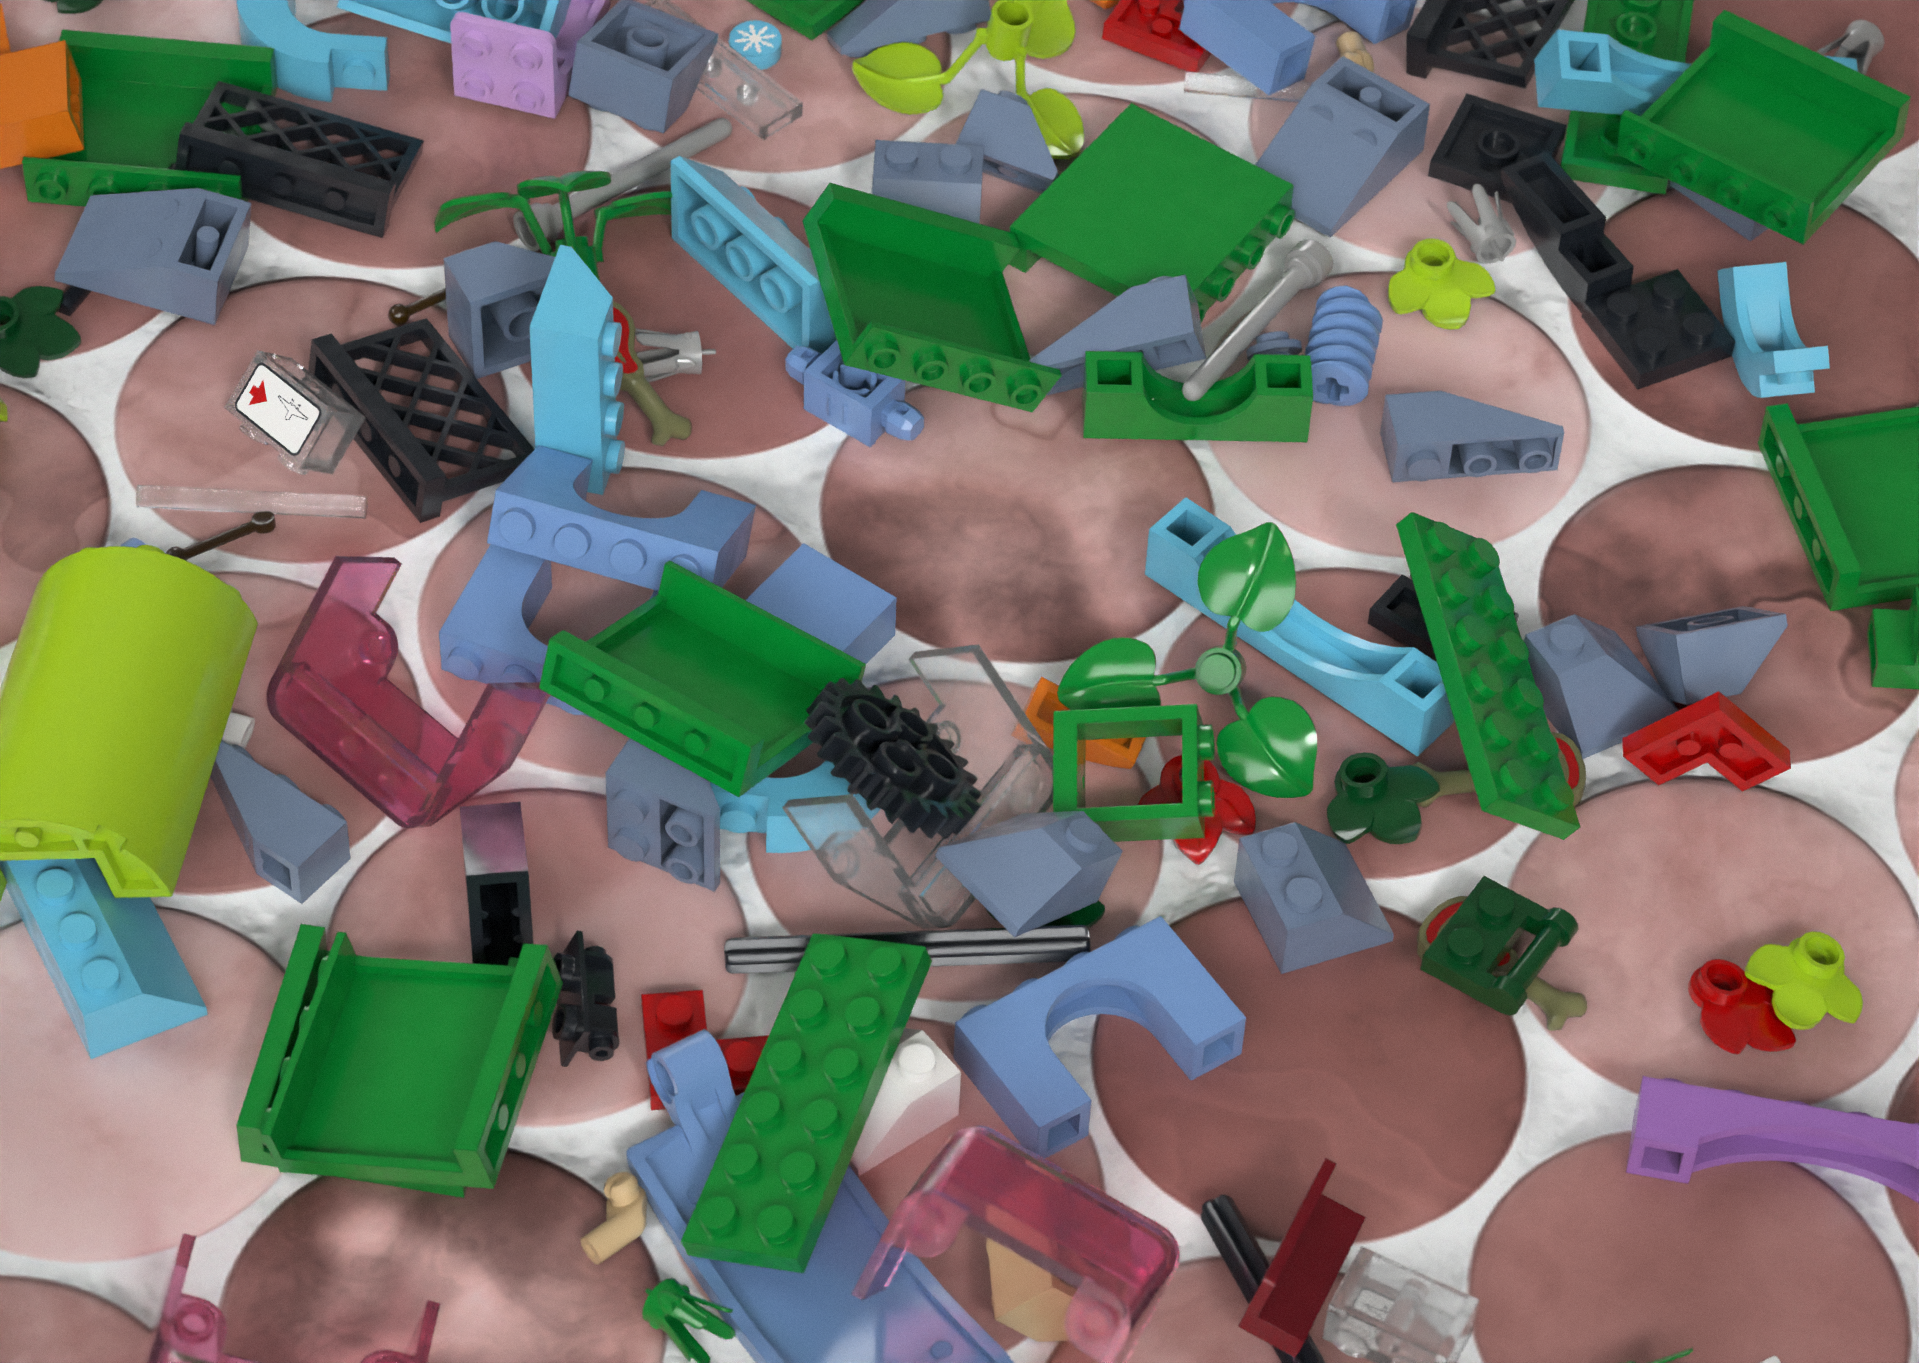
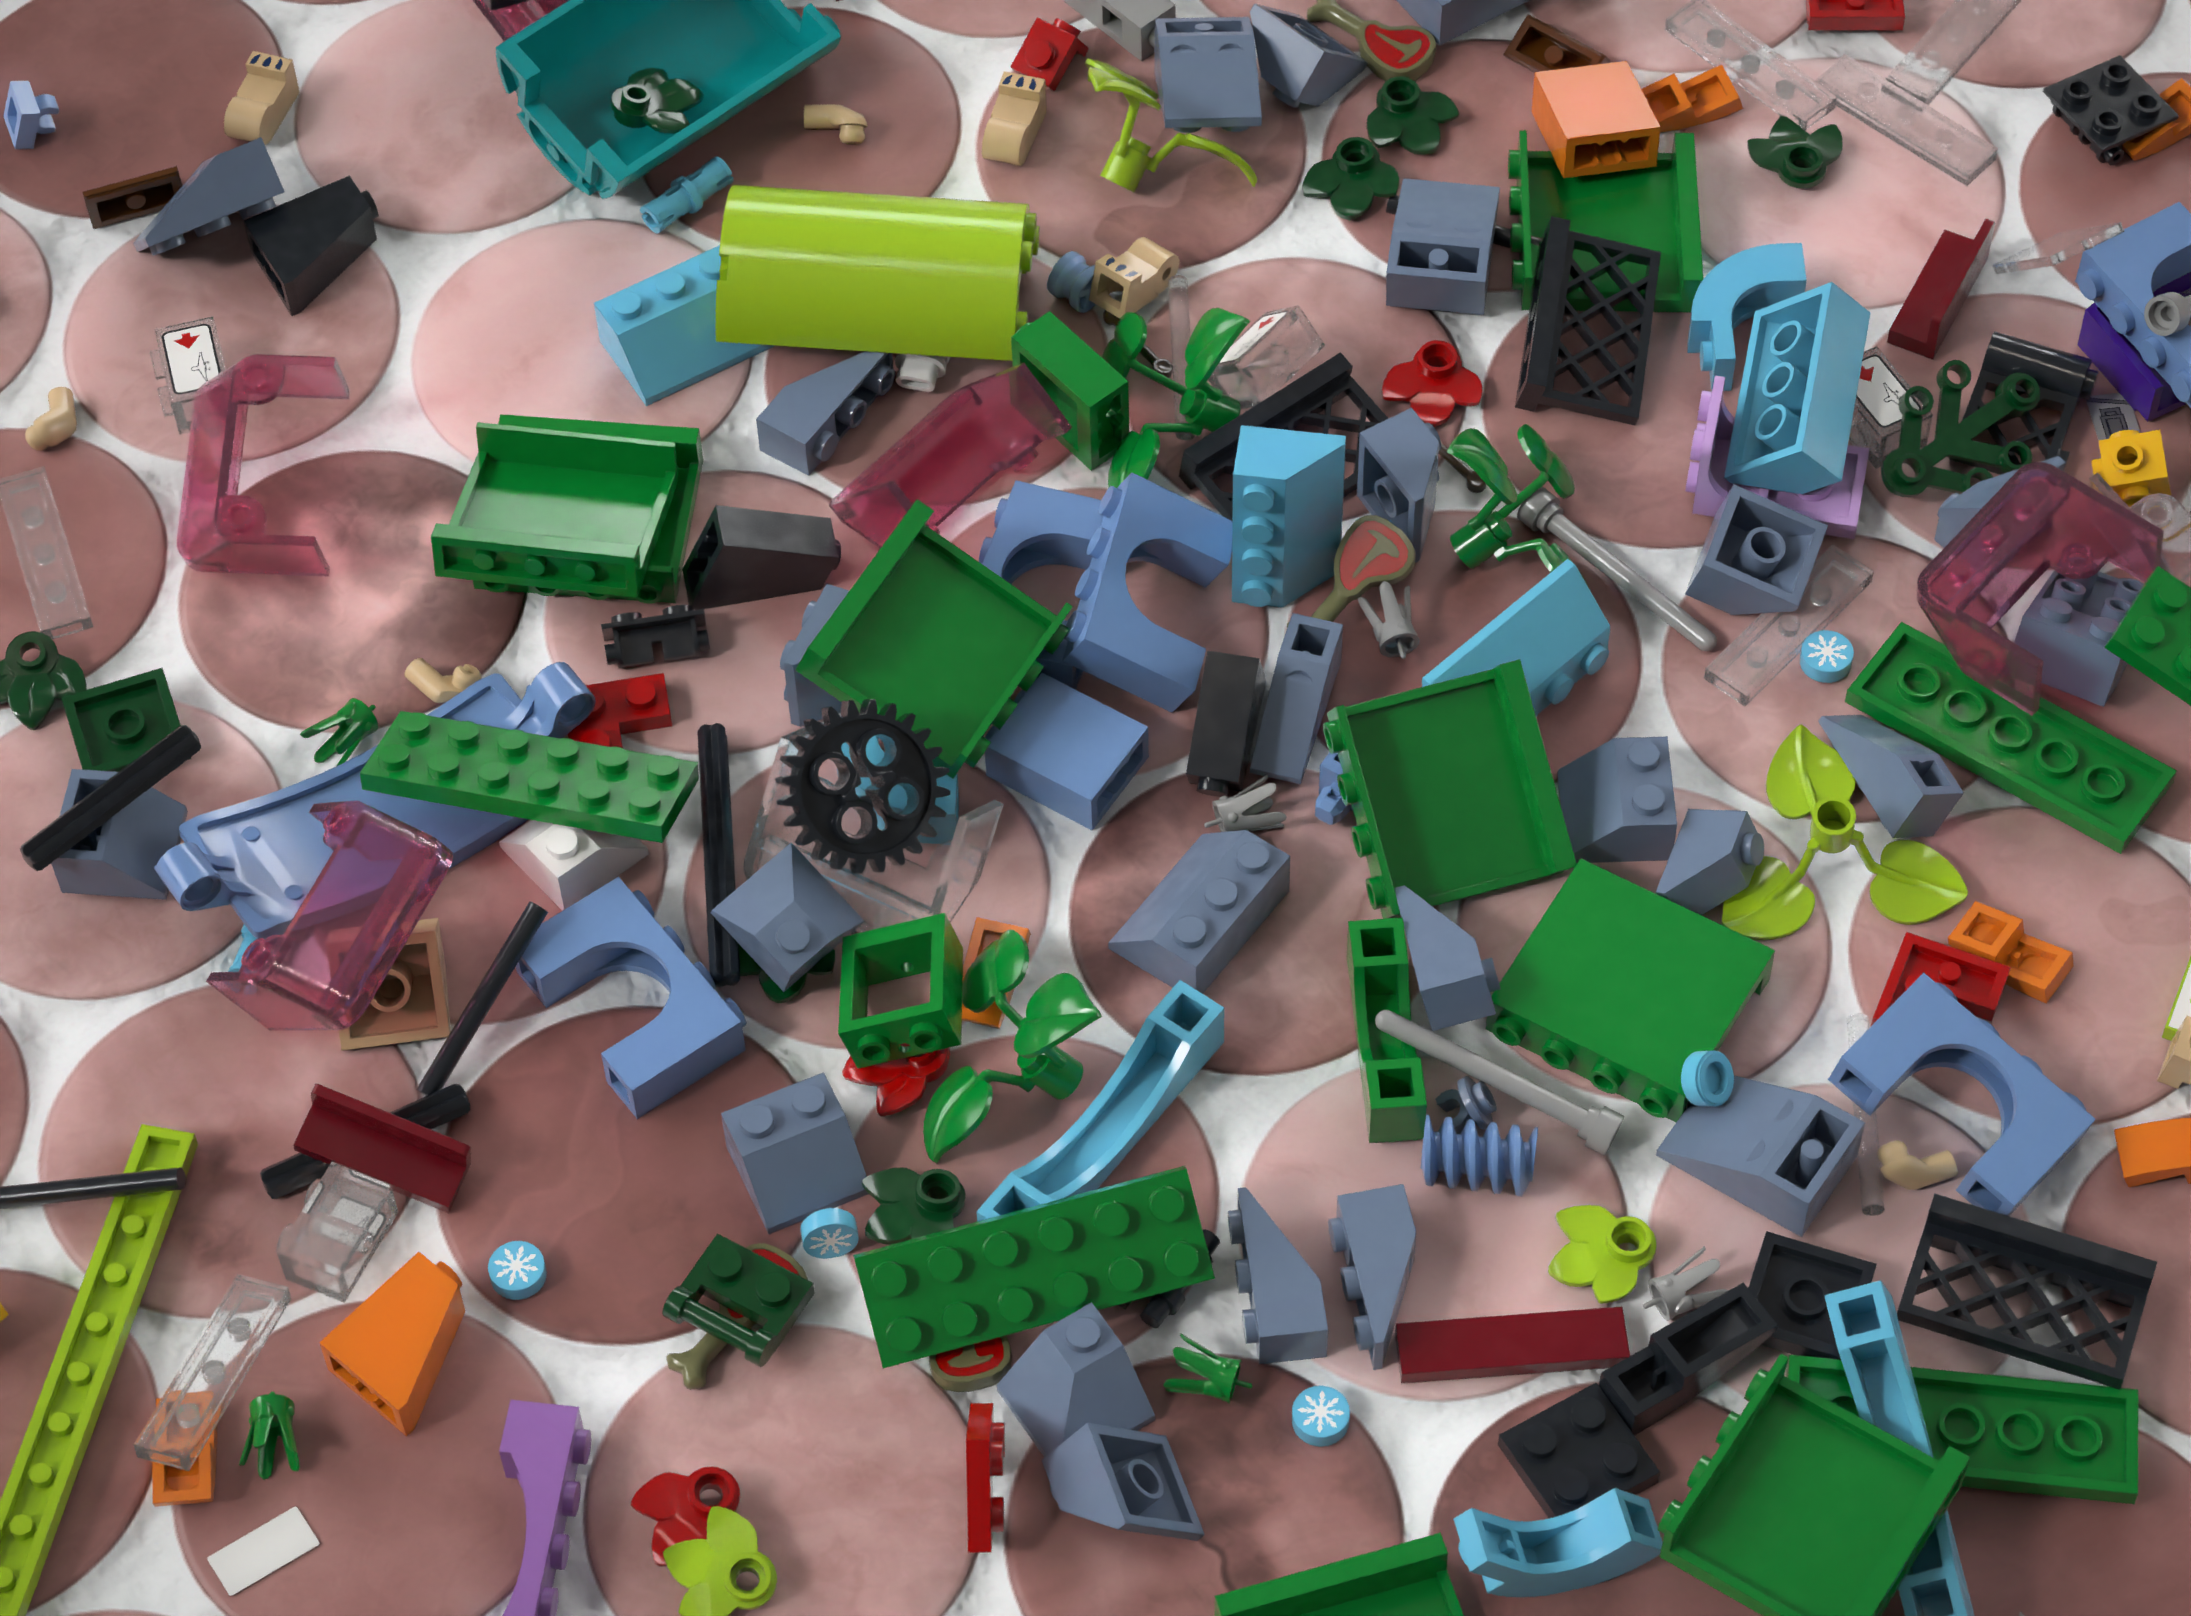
camera: 90 degrees right, 5 degrees up
(127, 512) = (1138, 273): none -> tan leg
(298, 548) = (1080, 385): none -> green window
(340, 293) = (1433, 383): none -> red plate
(345, 401) = (1200, 402): none -> green plant
(762, 427) = (1297, 697): none -> sand blue slope
(799, 486) = (1225, 722): none -> black slope
(906, 504) = (1243, 809): none -> light grey piece
(1023, 535) = (1205, 908): none -> sand blue slope
(1109, 1163) = (482, 999): none -> black bar
(1277, 164) = (1707, 1078): none -> medium azure tile
(1410, 871) = (829, 1233): none -> medium azure tile
(1441, 1160) = (517, 1270): none -> medium azure tile
(1501, 504) = (1284, 1292): none -> sand blue slope
(1538, 351) = (1511, 1344): none -> dark red tile
(1542, 1258) = (398, 1340): none -> orange slope
(1581, 570) = (1220, 1371): none -> green piece
(1616, 506) = (1320, 1416): none -> medium azure tile

